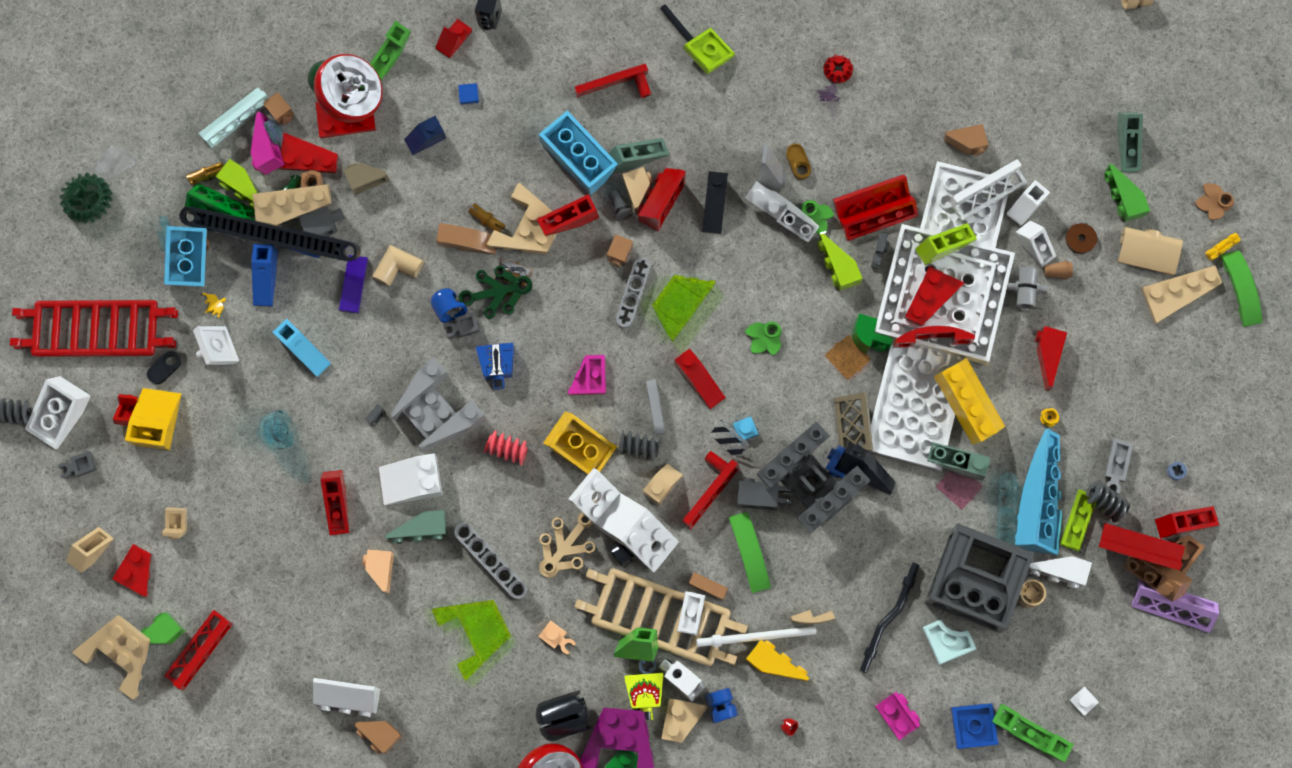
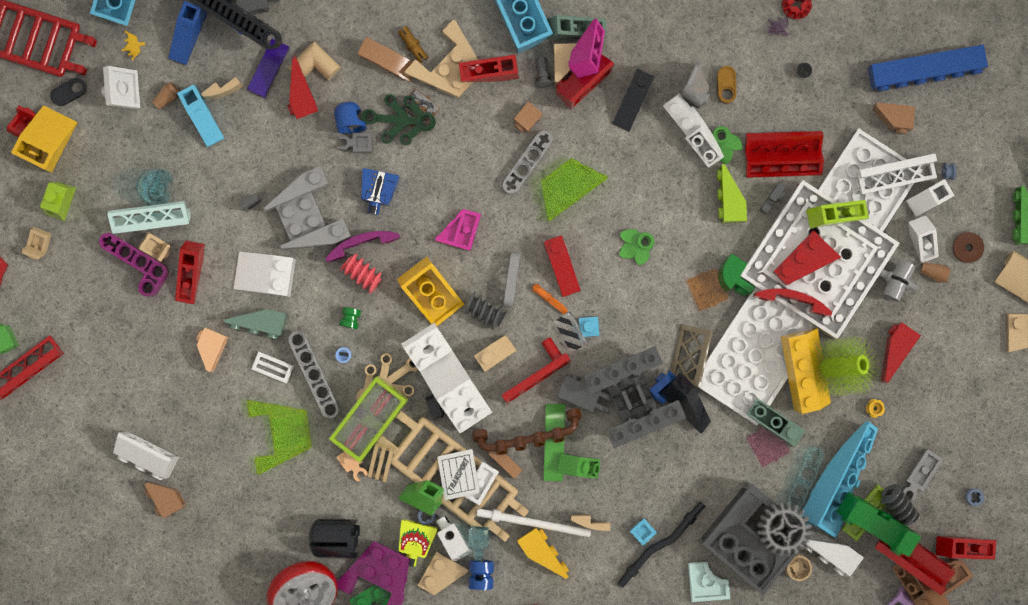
camera: 15 degrees right, 10 degrees up
(183, 472) = (57, 199): none -> lime torso
(261, 340) = (166, 95): none -> medium nougat cone
(276, 508) = (133, 260): none -> magenta beam
(280, 464) = (149, 220): none -> light aqua fence
(294, 488) = (154, 247): none -> tan bracket
(309, 321) = (215, 91): none -> tan slope
(392, 296) = (300, 95): none -> red slope
(447, 561) = (287, 373): none -> white tile
(508, 495) = (349, 319): none -> green wheel
(514, 537) = (343, 358): none -> light blue hinge
(518, 405) = (339, 252): none -> magenta slope
(559, 585) = (369, 419): none -> clear brick
(585, 641) = (378, 474): none -> tan tile
(656, 170) = (587, 52): none -> dark pink slope
(666, 611) = (458, 474): none -> white sticker
(695, 414) = (547, 297): none -> orange piece
(708, 670) = (479, 539): none -> clear light blue plate
(733, 550) = (538, 438): none -> reddish brown bar
(782, 565) = (578, 466): none -> bright green slope
(867, 610) = (643, 531): none -> medium azure plate
(868, 121) = (807, 66): none -> black hinge
(981, 86) = (928, 67): none -> blue brick
(1000, 547) = (793, 528): none -> light grey gear
(1005, 382) = (844, 366): none -> lime piece
(1037, 173) = (949, 171): none -> sand blue bush
(1094, 523) = (879, 523): none -> green brick

